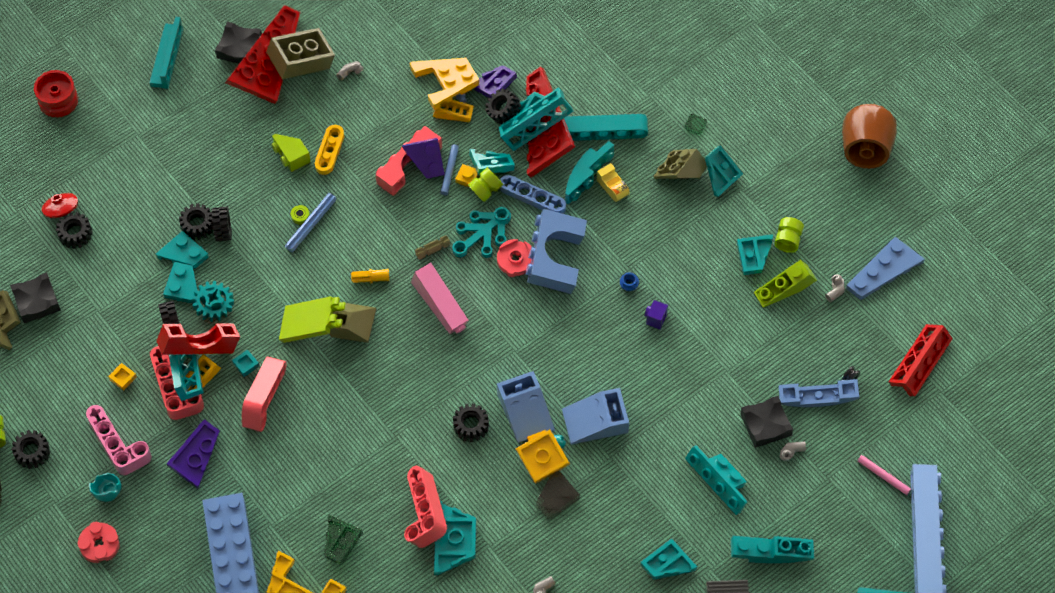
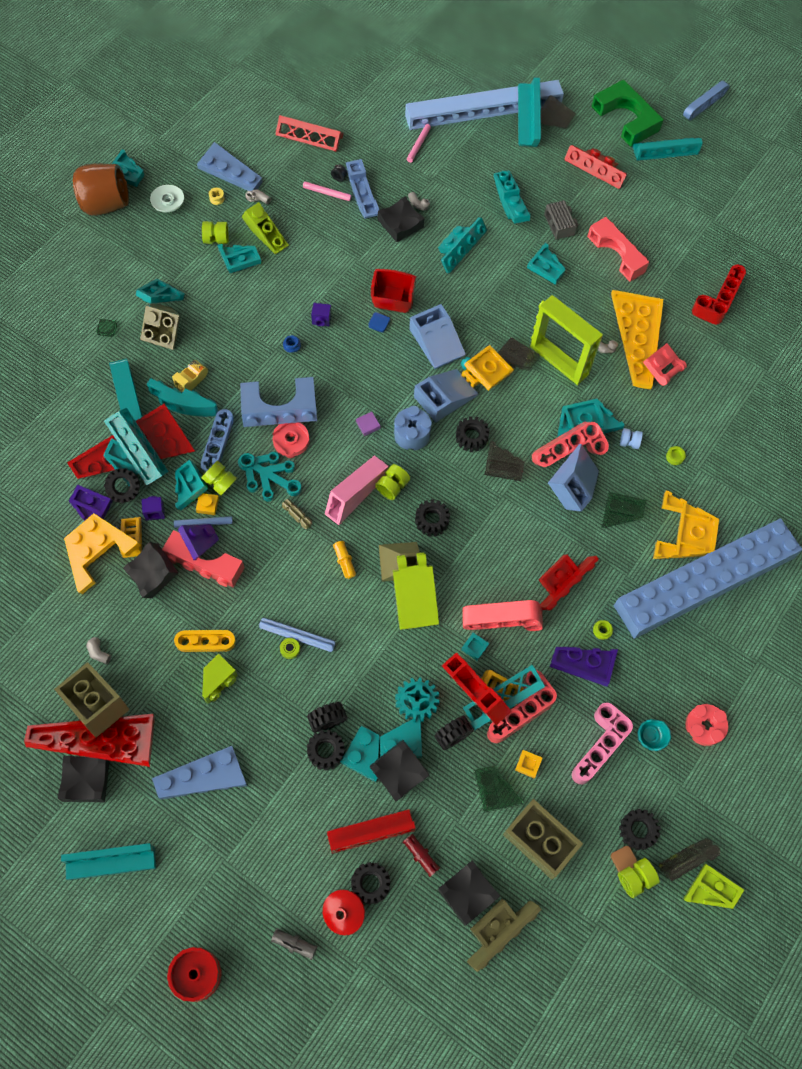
camera: 110 degrees left, 5 degrees up
(12, 430) = (623, 858): none -> medium nougat piece
(51, 167) = (294, 943): none -> dark grey pin
(53, 363) = (543, 839): none -> olive brick
(81, 272) = (421, 855): none -> dark red pin
(110, 343) = (495, 790): none -> clear green wing
(114, 240) = (370, 831): none -> red fence
(154, 268) = (399, 770): none -> black brick
(211, 129) = (200, 776): none -> medium blue wing
(222, 475) = (602, 624): none -> lime plate
(286, 458) = (562, 577): none -> red bracket
(382, 498) = (575, 480): none -> medium blue slope
(388, 371) = (428, 527): none -> black tyre
(408, 115) = (151, 570): none -> black brick
(418, 573) = (631, 438): none -> light blue wheel
(428, 442) = (503, 464): none -> clear smoke wing
(436, 332) = (394, 479): none -> lime wheel
(474, 129) = (153, 508): none -> dark purple plate
(491, 364) = (412, 428): none -> medium blue brick
(513, 331) = (368, 423): none -> medium lavender tile
(521, 548) = (577, 327): none -> lime window
(637, 371) = (379, 322): none -> blue piece
(662, 382) = (393, 290): none -> red piece
(830, 359) = (327, 191): none -> bright pink bar
(845, 254) = (217, 200): none -> light yellow bush
(848, 192) = (167, 198): none -> light aqua dish
(901, 167) = (132, 172): none -> teal wing

